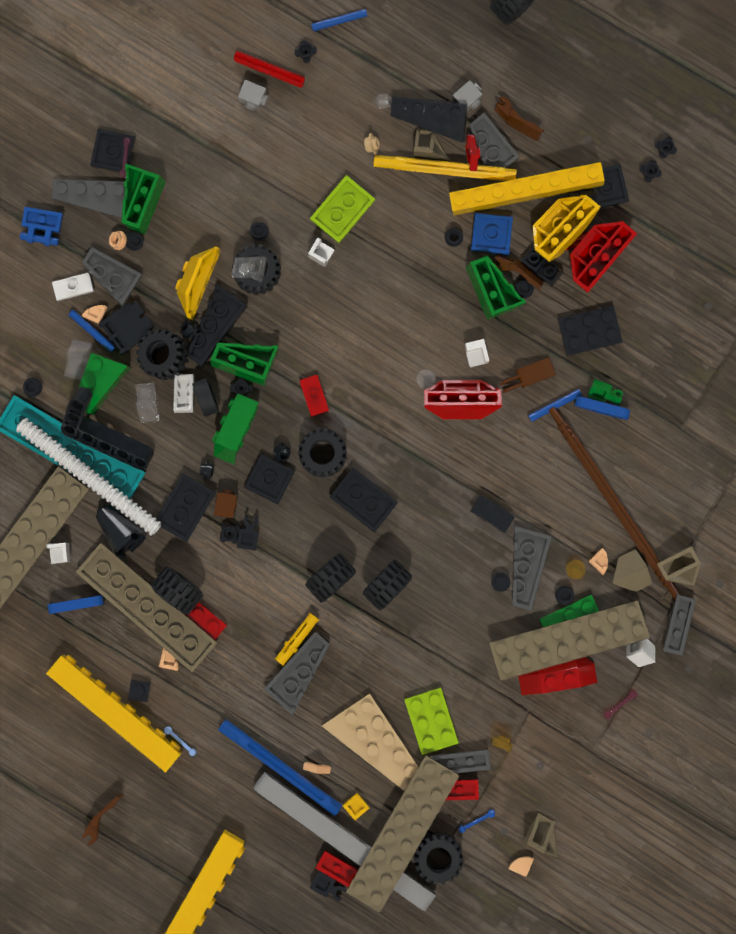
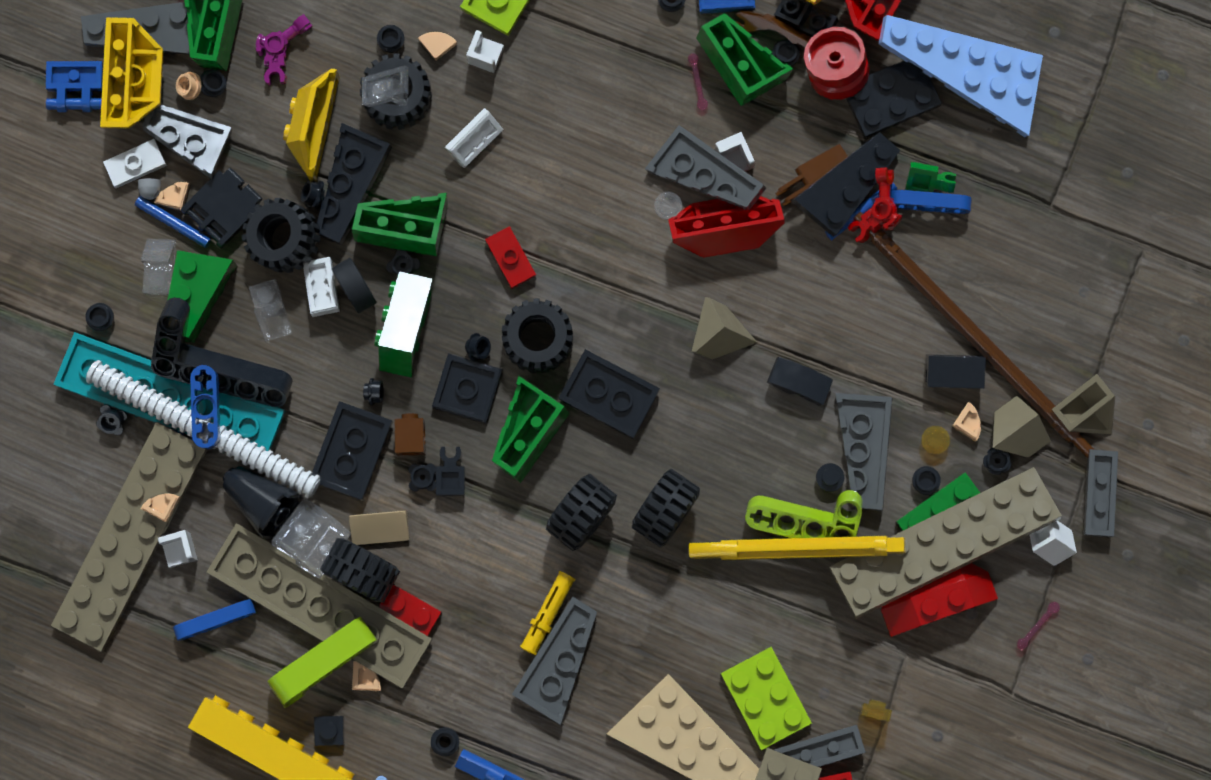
camera: 10 degrees left, 5 degrees down
(25, 461) = (106, 425): none -> black plate
(52, 523) = (161, 505): none -> light nougat tile
(79, 226) = (129, 74): none -> yellow wedge
(79, 306) = (149, 188): none -> light grey hinge
(85, 477) = (214, 428): none -> blue beam
(141, 646) = (321, 661): none -> lime beam
(148, 560) = (309, 536): none -> clear slope
(181, 223) = (276, 46): none -> magenta piece
(195, 562) = (379, 527): none -> tan slope
(214, 718) = (435, 741): none -> black plate
(290, 240) = (437, 43): none -> light nougat tile
(303, 310) = (474, 138): none -> white plate
(305, 515) = (527, 430): none -> green wedge
(445, 471) = (719, 331): none -> dark tan slope
(453, 359) = (699, 167): none -> dark grey wing
(461, 313) = (702, 103): none -> clear pink hinge
(471, 627) = (798, 548): none -> yellow piece
(479, 605) = (803, 516): none -> lime beam
(542, 391) = (841, 190): none -> black wing
(556, 303) = (836, 63): none -> red wheel
(568, 409) = (883, 210): none -> red piece
(597, 525) = (955, 371): none -> black hinge
(609, 591) = (989, 461): none -> black plate
(652, 325) = (978, 70): none -> light blue wing

